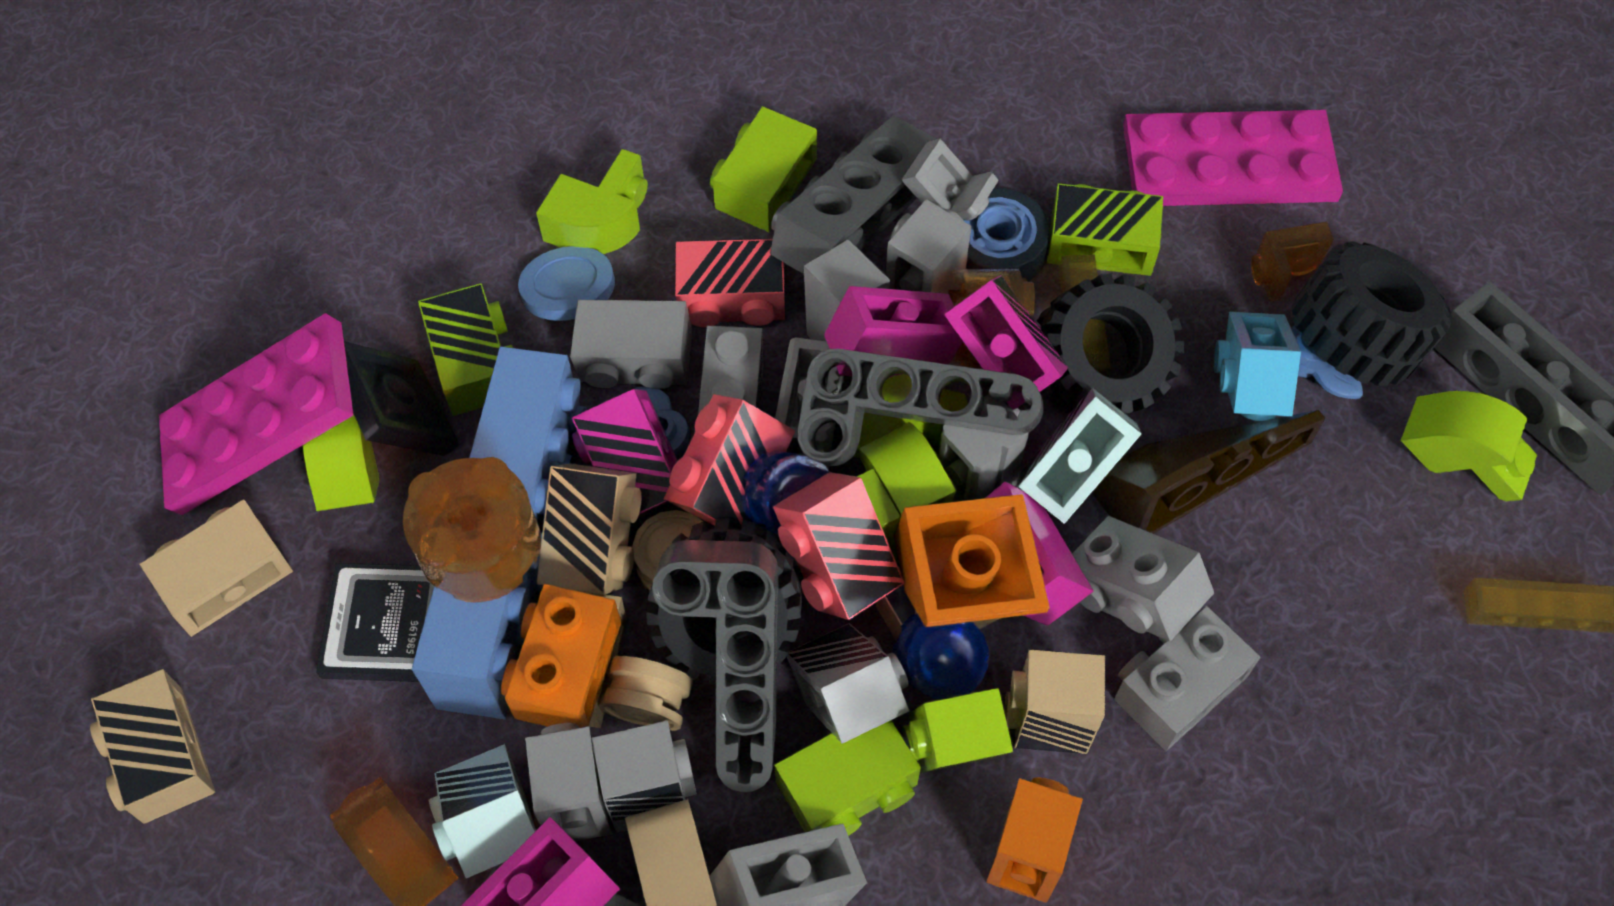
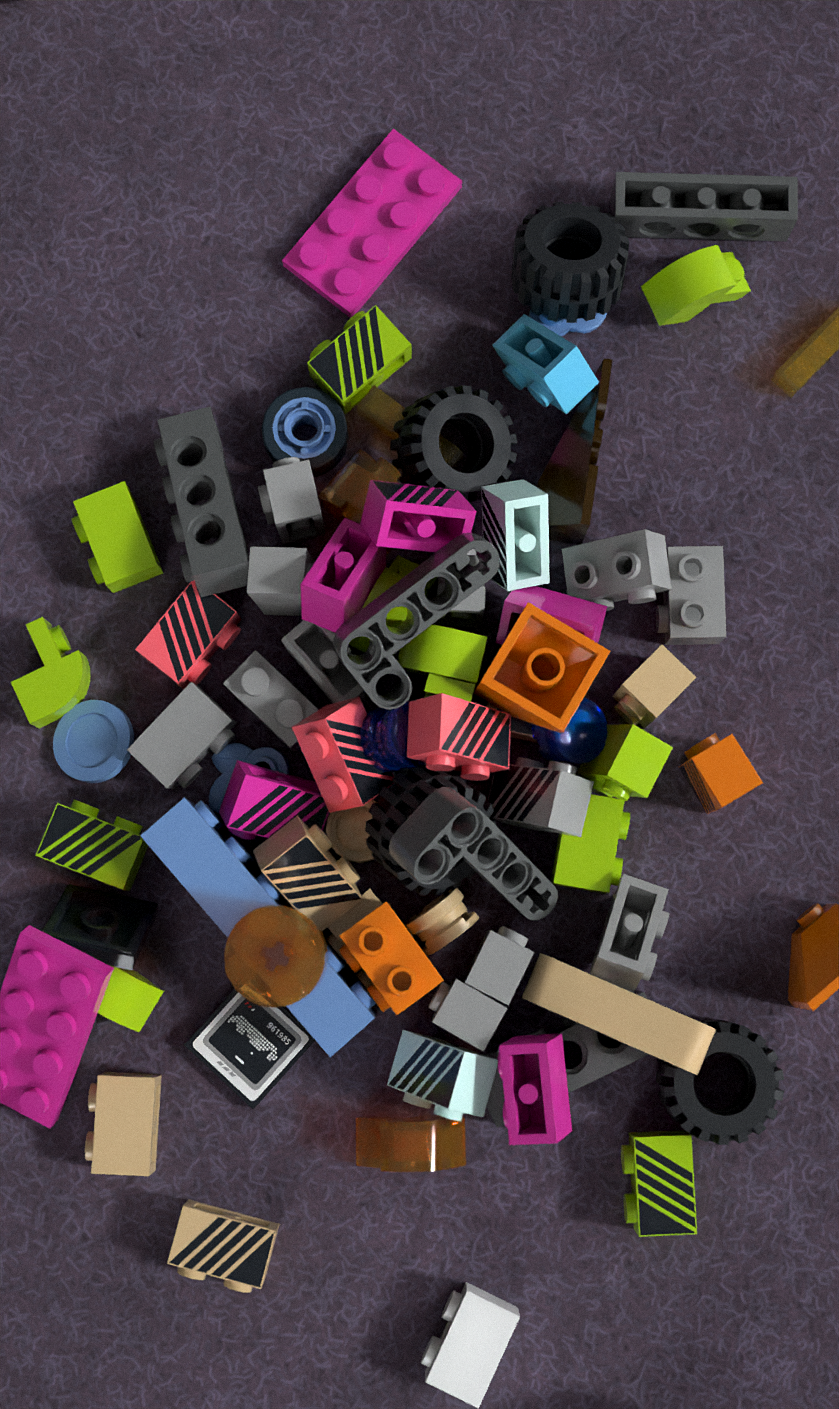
camera: 50 degrees left, 20 degrees up
(947, 183) = (253, 438): light grey bracket -> none
(1287, 254) = (479, 258): clear orange bracket -> none

